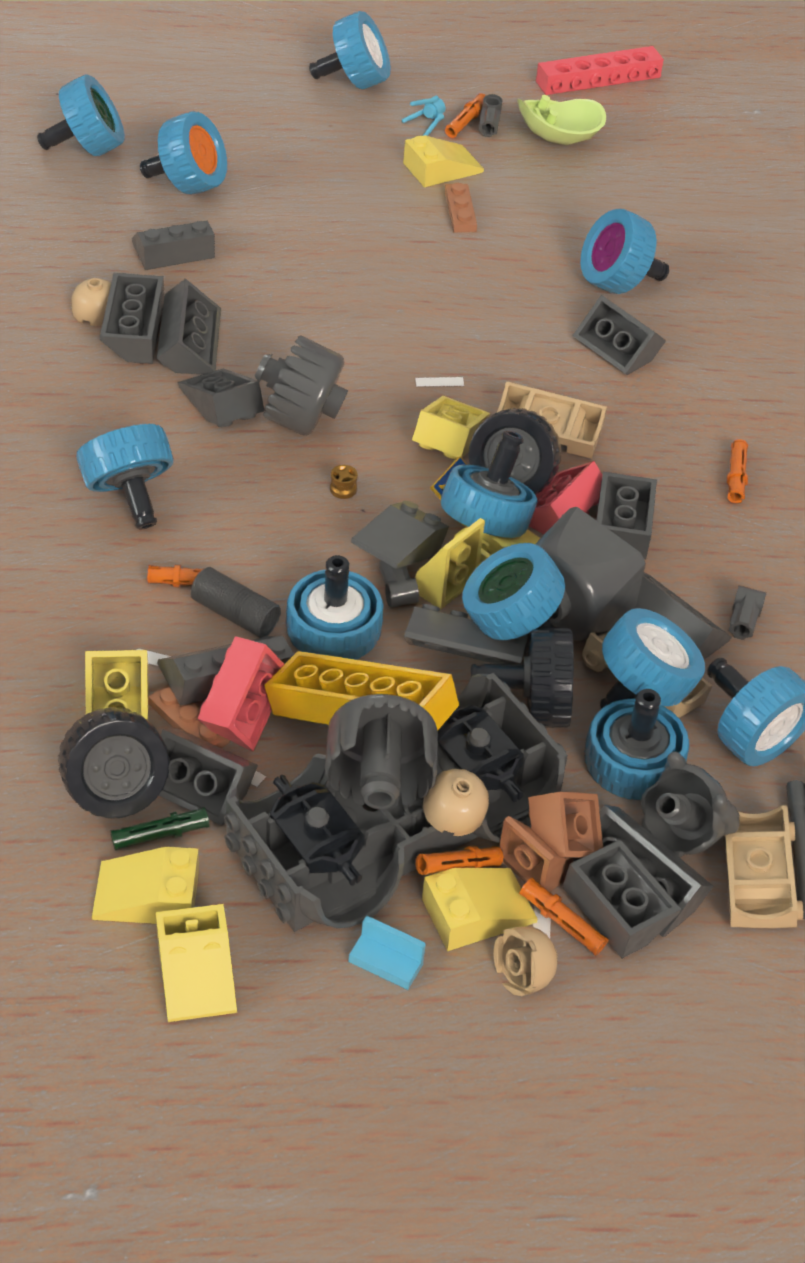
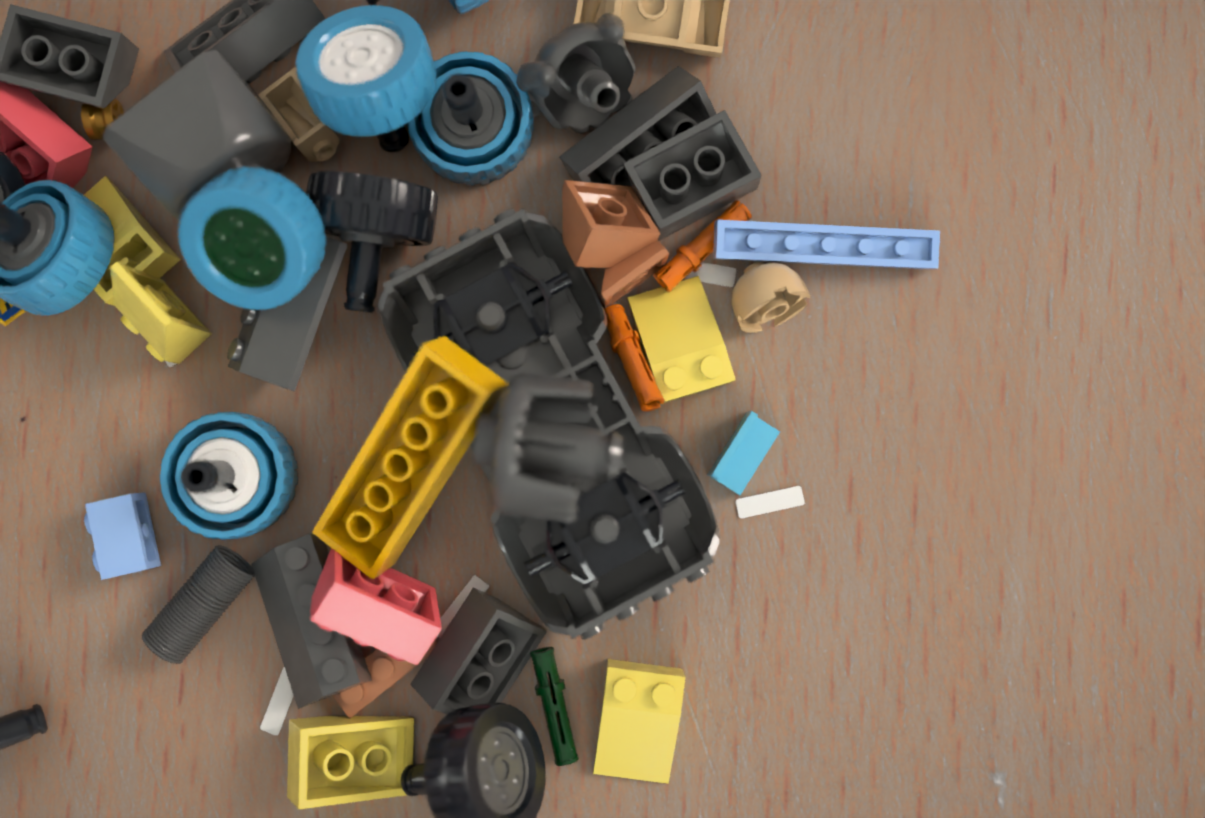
camera: 80 degrees left, 40 degrees up
(172, 575) = (139, 681): orange pin -> none
(195, 962) = (749, 670): light yellow slope -> none
(284, 558) = (122, 535): none -> light blue brick
(344, 986) = (770, 502): none -> white sticker
(399, 586) = (178, 384): dark grey piece -> none
(402, 535) = (97, 376): dark grey slope -> none
(456, 802) = (571, 359): tan cylinder -> none
(581, 1008) = (826, 244): none -> light blue plate

